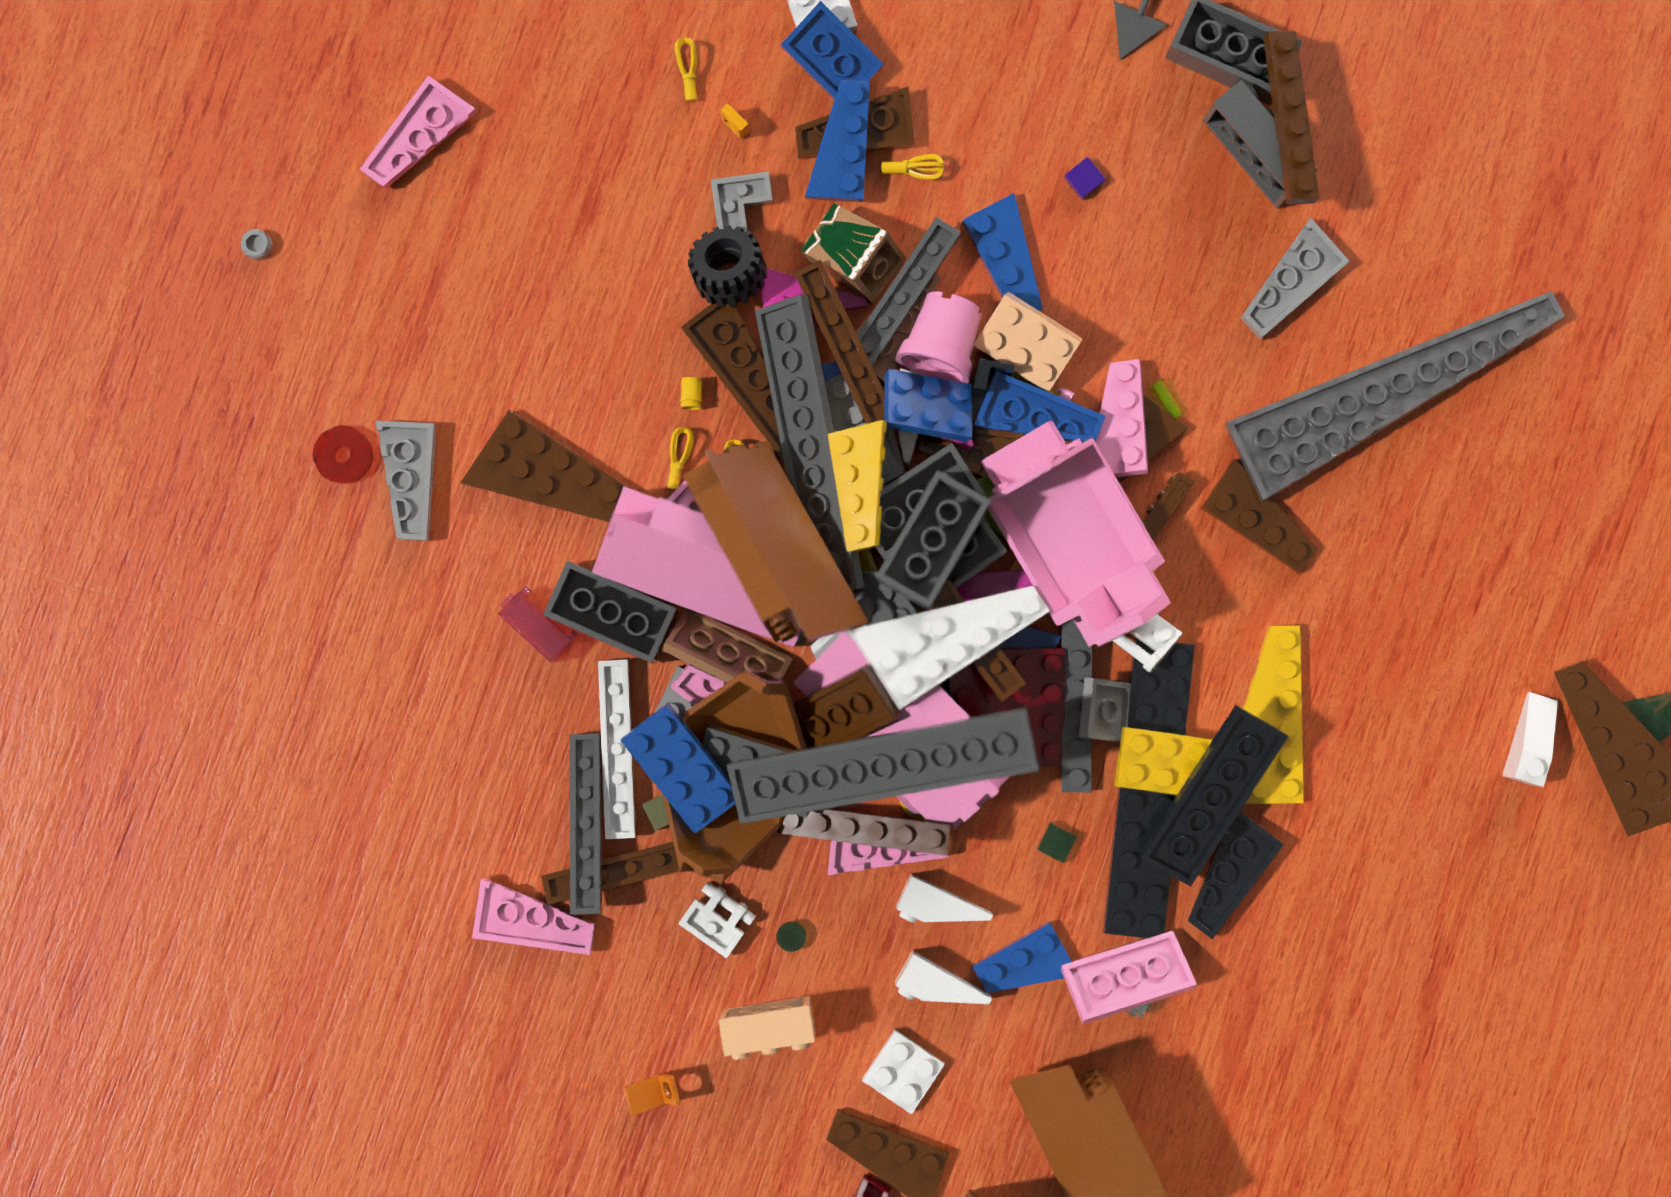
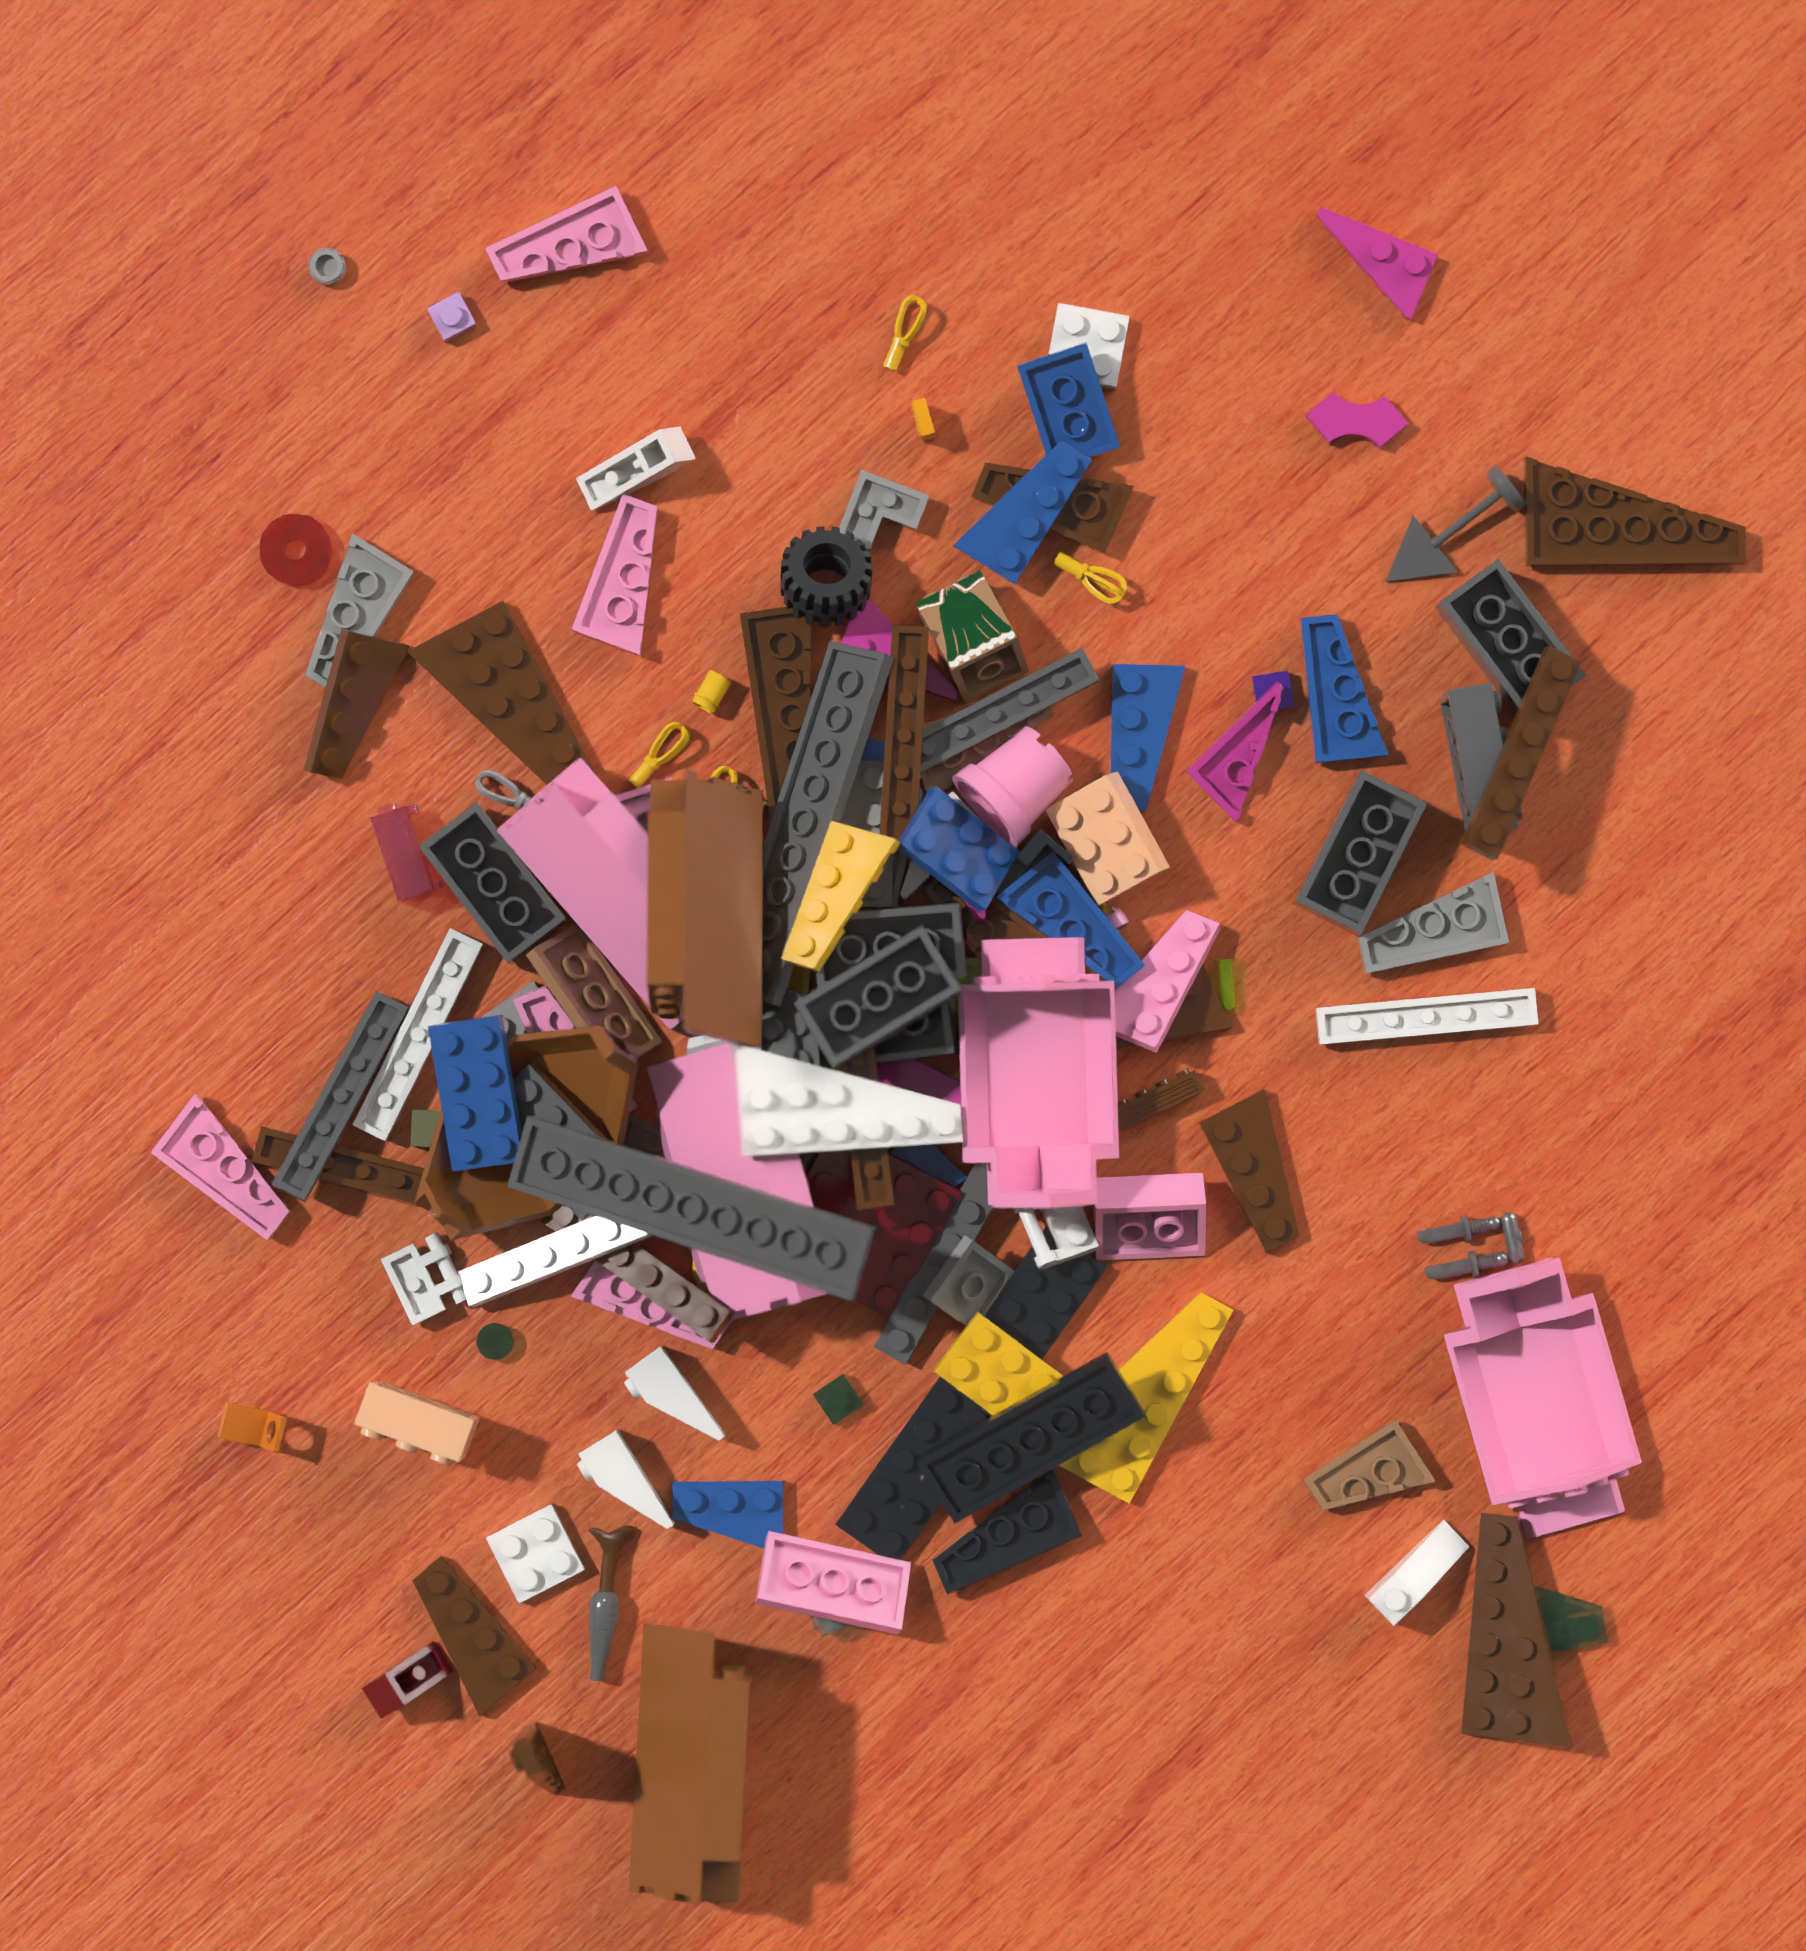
camera: 20 degrees right, 0 degrees up
(363, 231) = (451, 317): none -> lavender plate
(438, 536) = (353, 692): none -> reddish brown wing
(551, 264) = (636, 467): none -> white slope
(579, 536) = (518, 802): none -> light grey piece
(584, 354) = (619, 585): none -> bright pink wing
(794, 859) = (545, 1258): none -> white plate
(845, 709) = (685, 1125): reddish brown tile -> none
(971, 1078) = (604, 1603): none -> dark grey piece
(1083, 241) = (1230, 762): none -> dark pink wing
(1134, 160) = (1337, 699): none -> blue wing
(1207, 591) = (1150, 1216): none -> bright pink slope
(1211, 255) = (1359, 853): none -> dark grey brick
(1320, 344) = (1426, 1016): none -> white plate
(1323, 422) = (1386, 1103): flat silver wing -> none
(1449, 500) = (1464, 1229): none -> flat silver piece
(1458, 684) = (1370, 1468): none -> medium nougat wing
(1551, 565) = (1542, 1397): none -> bright pink panel

